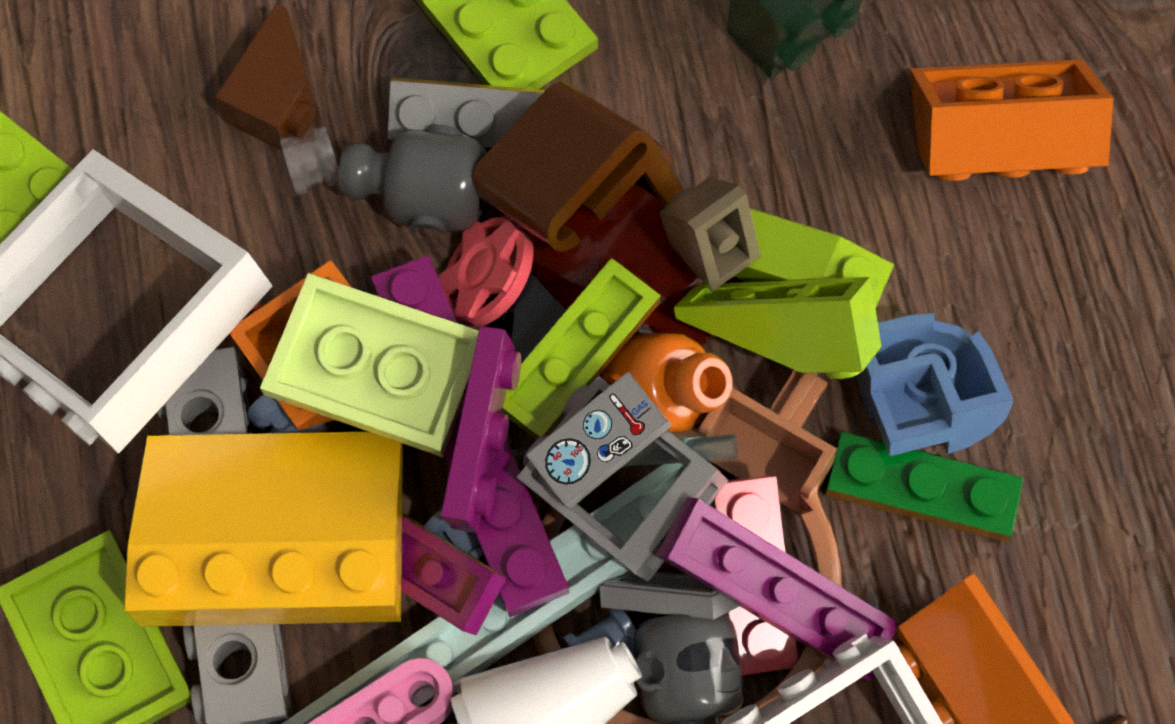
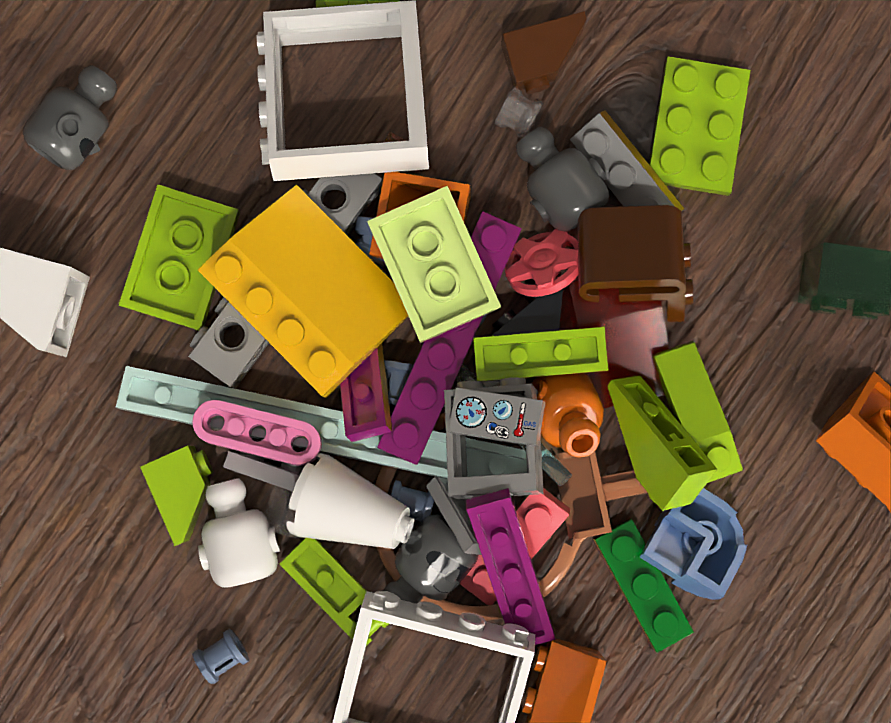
camera: 45 degrees right, 15 degrees up
(481, 430) = (449, 352): magenta plate -> none
(712, 230) = (667, 362): dark tan slope -> none

